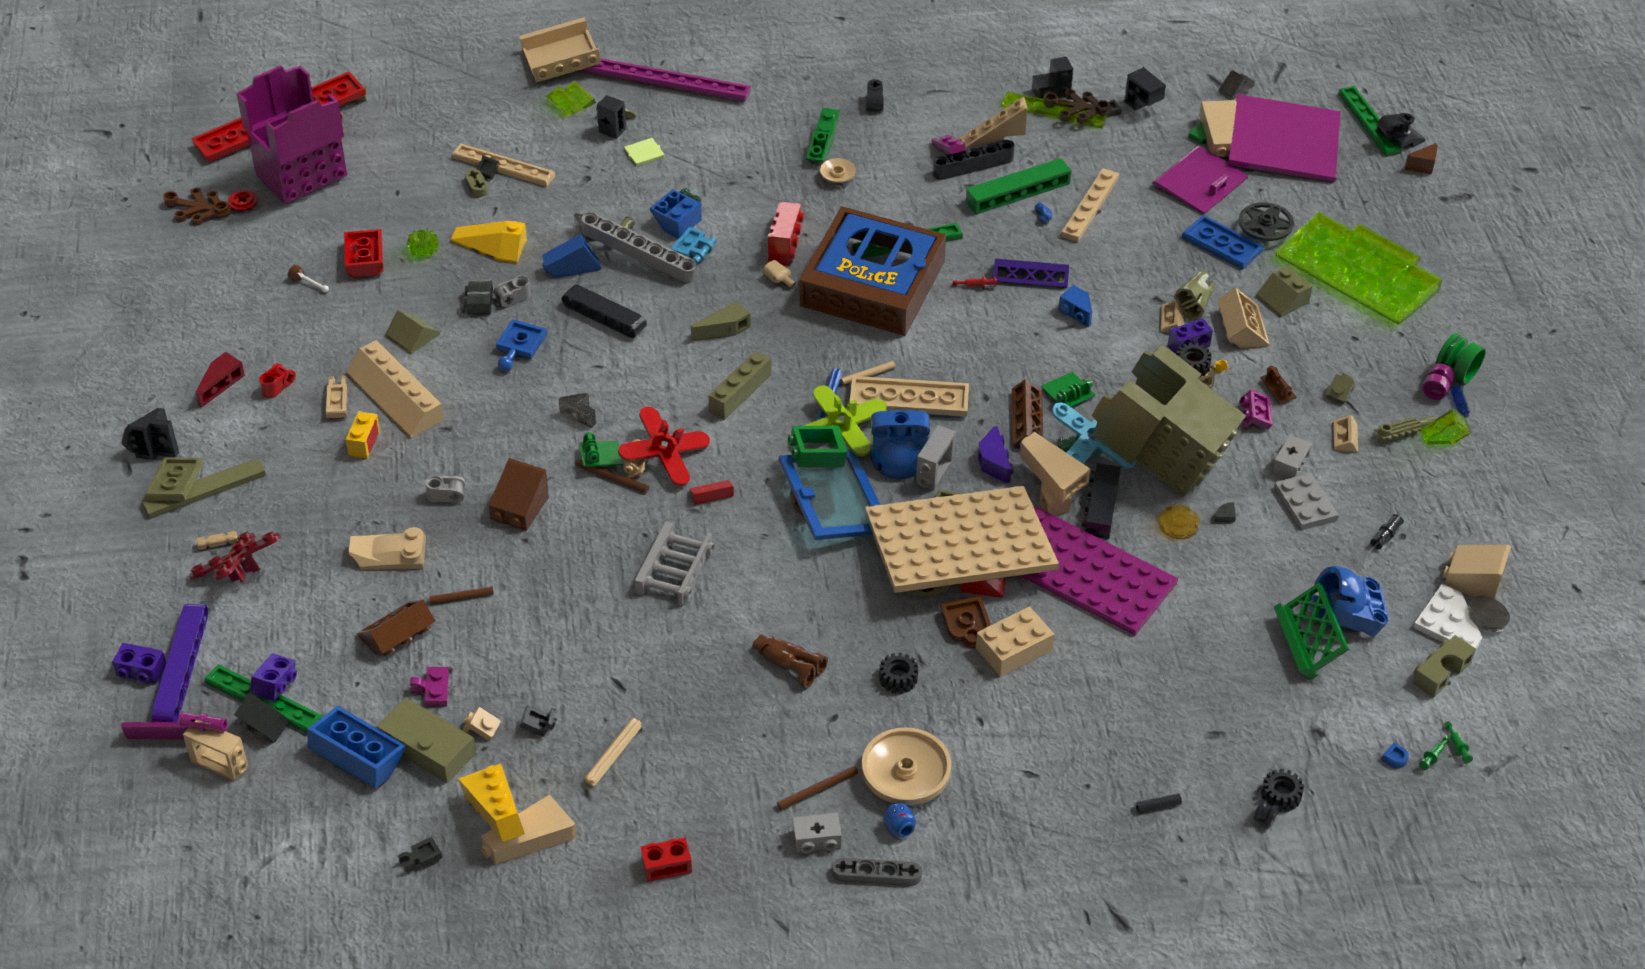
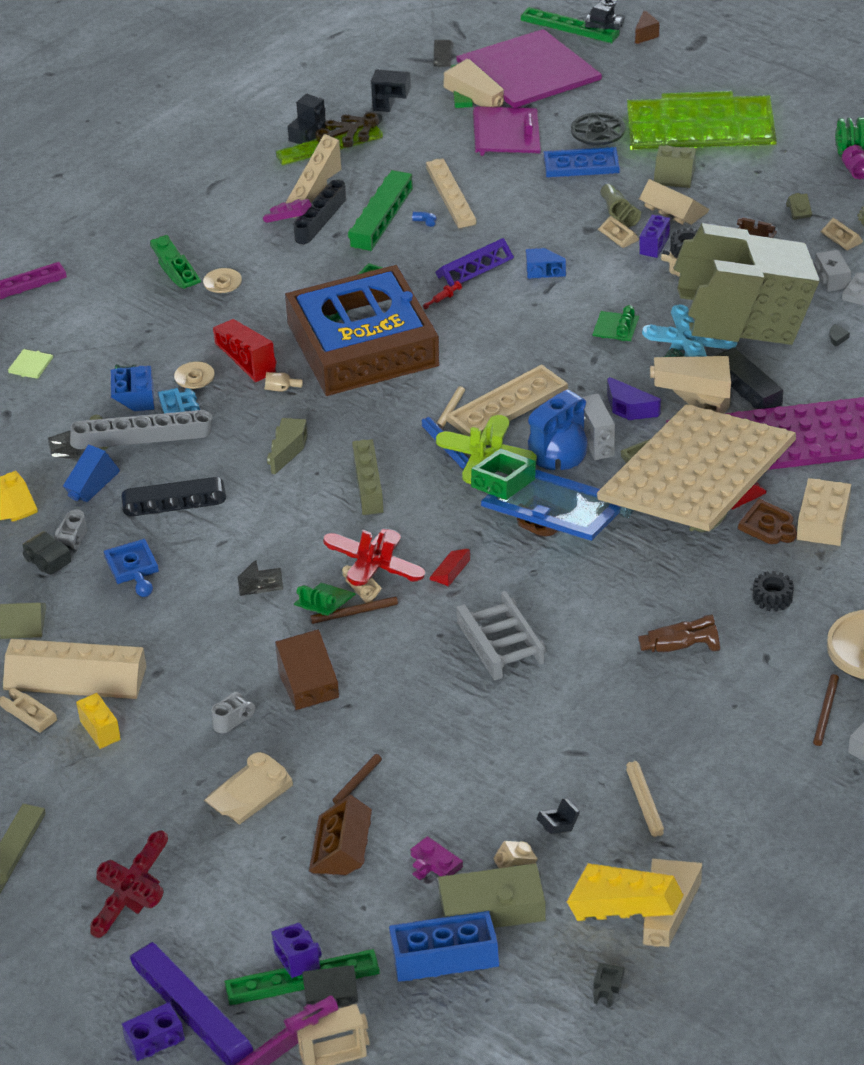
camera: 40 degrees left, 5 degrees down
(216, 540) = (78, 891): tan axle -> none
(666, 862) = (795, 838): red brick -> none
(728, 230) = (194, 375): none -> tan dish
(875, 95) = (175, 211): black piece -> none
(1024, 412) = (610, 360): reddish brown fence -> none
(1179, 522) = (814, 362): clear yellow tile -> none

